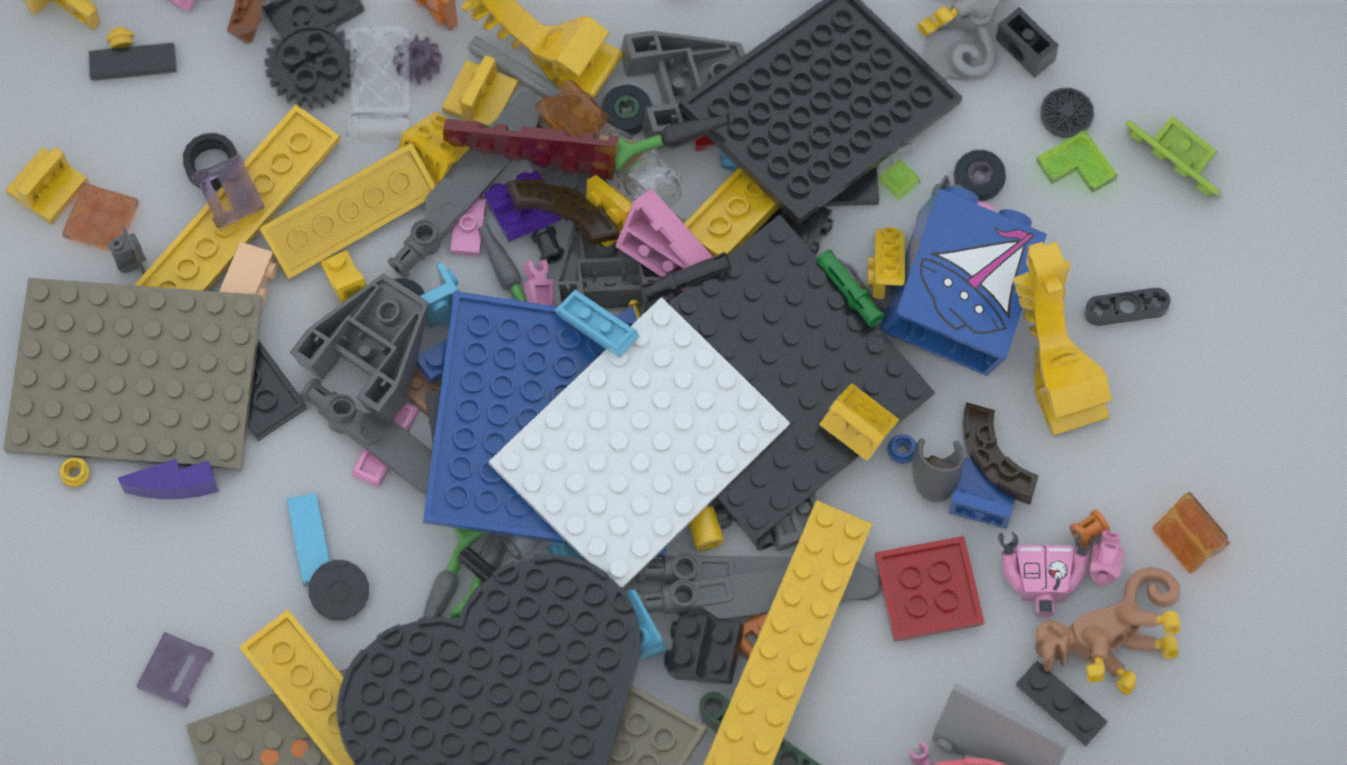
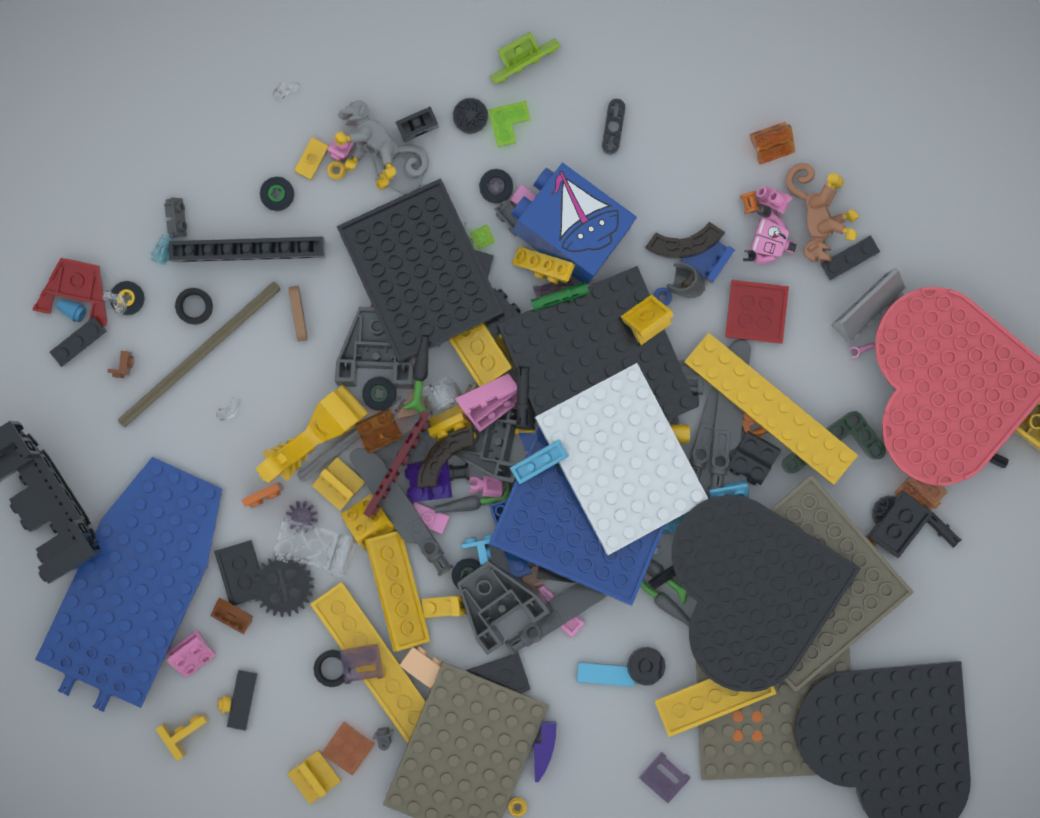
camera: 75 degrees left, 20 degrees up
(1066, 380) = (652, 184): yellow piece -> none

